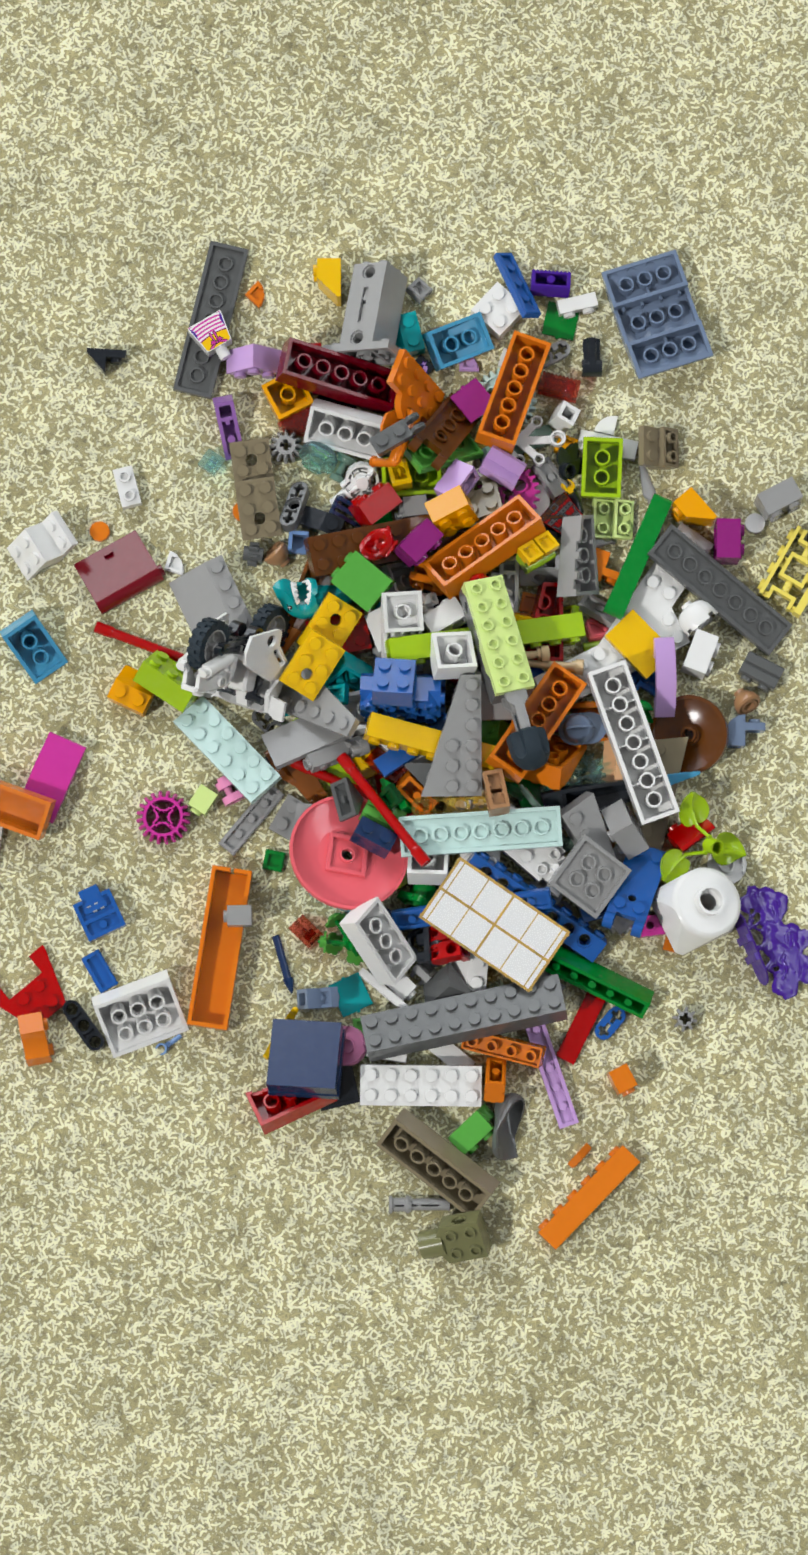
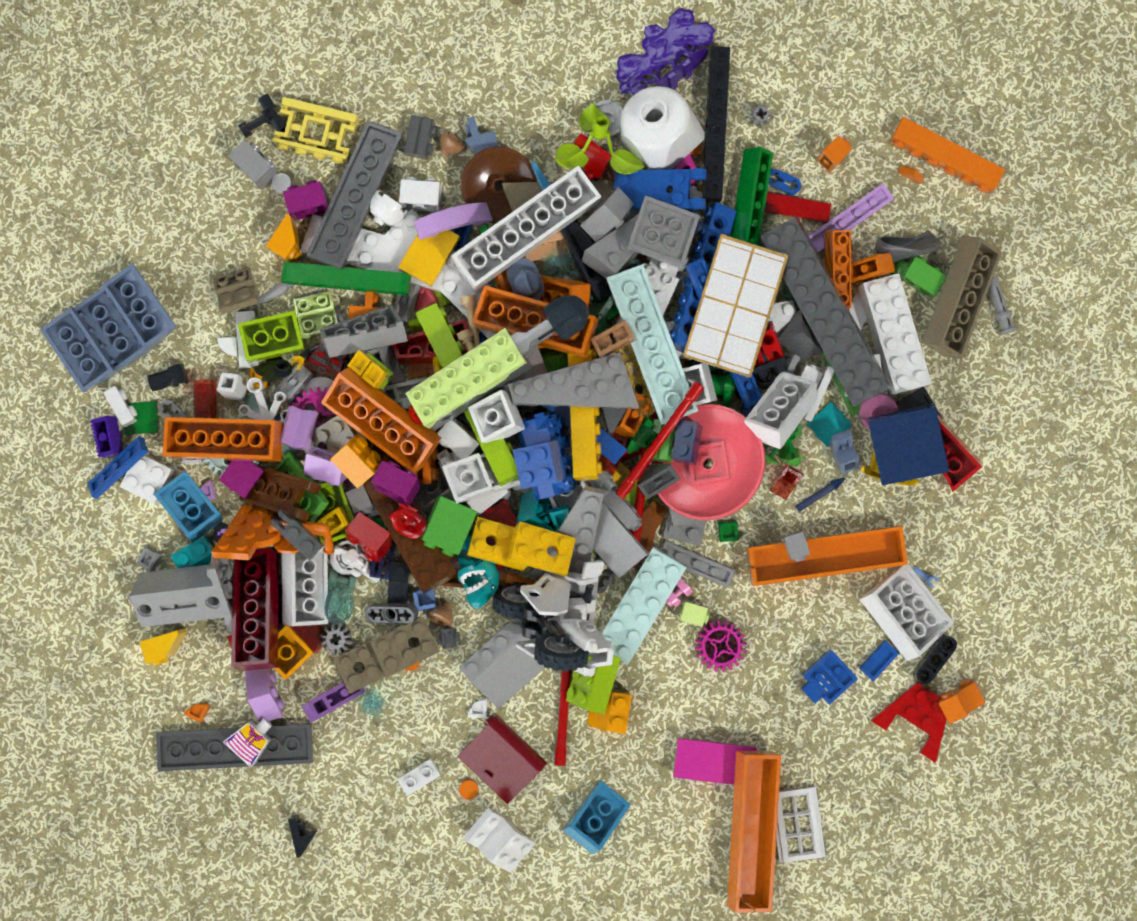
camera: 105 degrees left, 5 degrees up
(457, 1238) = (1024, 260): olive brick -> none
(688, 971) = (716, 123): none -> black brick

